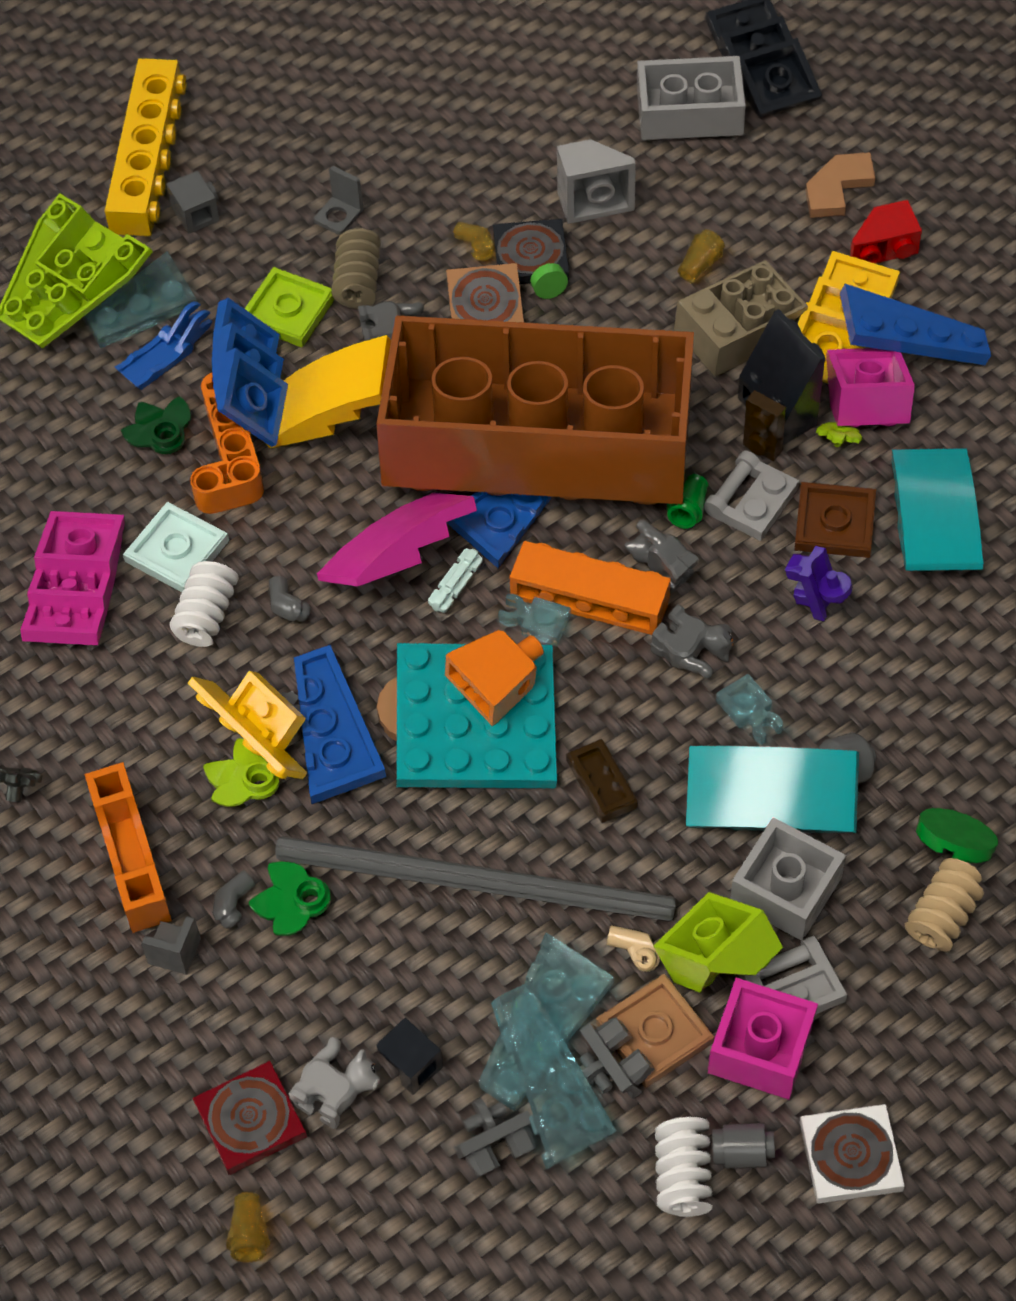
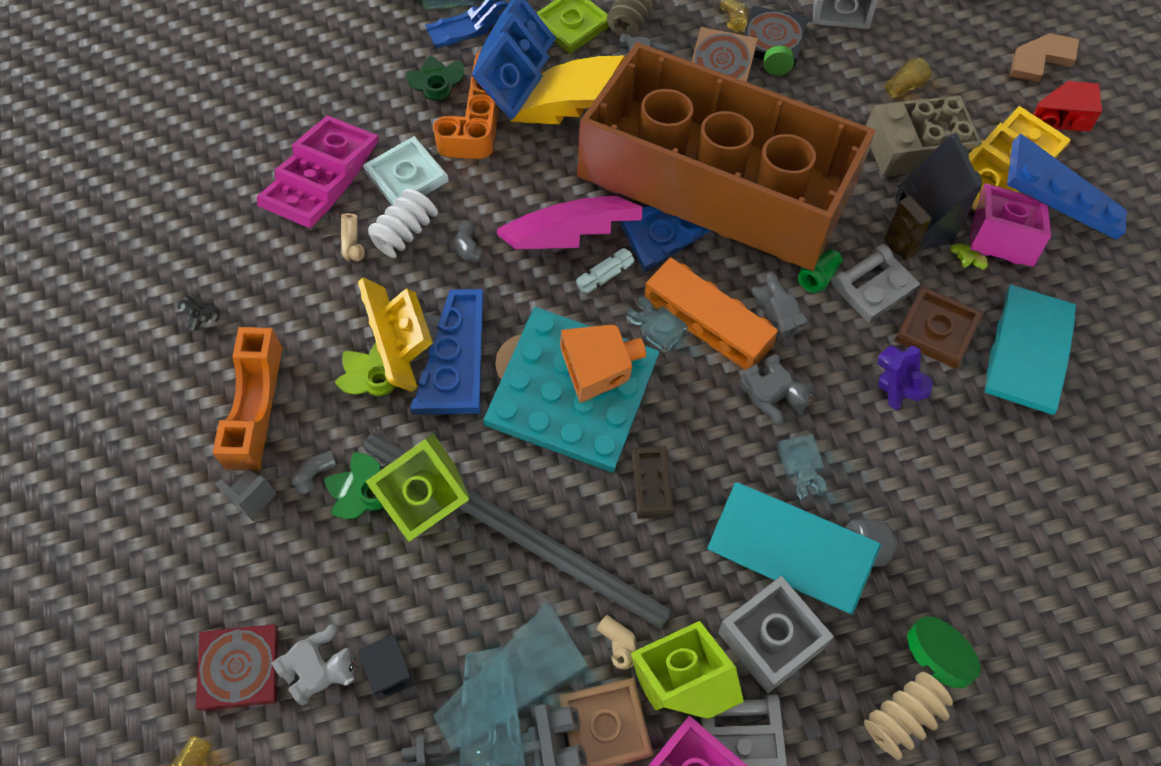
camera: 20 degrees right, 5 degrees up
(147, 640) = (349, 248): none -> tan arm
(367, 865) = (419, 487): none -> lime slope

